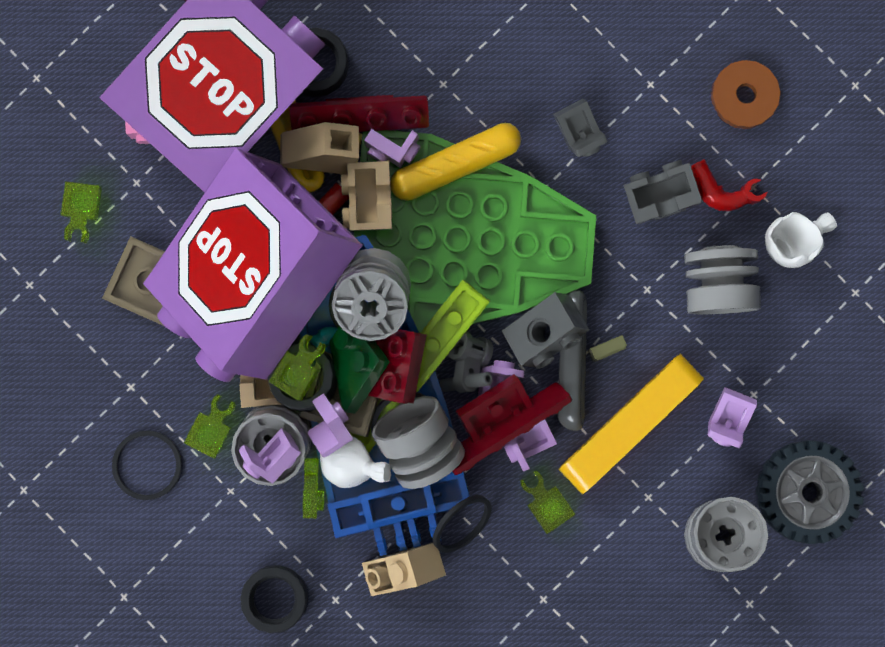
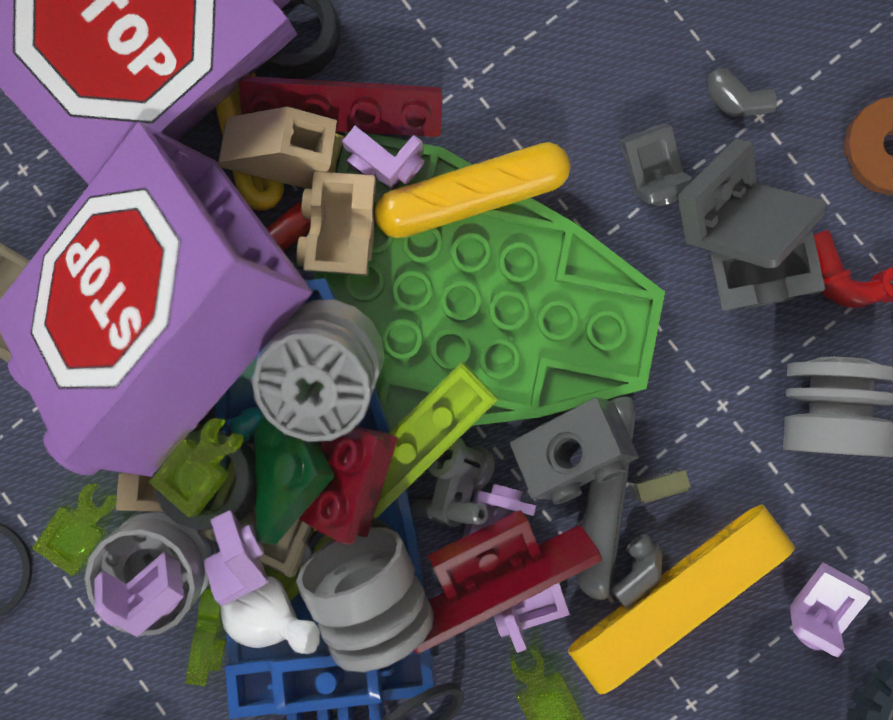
camera: 10 degrees right, 0 degrees up
(604, 408) = (645, 571): none -> dark grey arm
(631, 75) = (735, 99): none -> dark grey arm
(639, 157) = (744, 219): none -> dark grey bracket

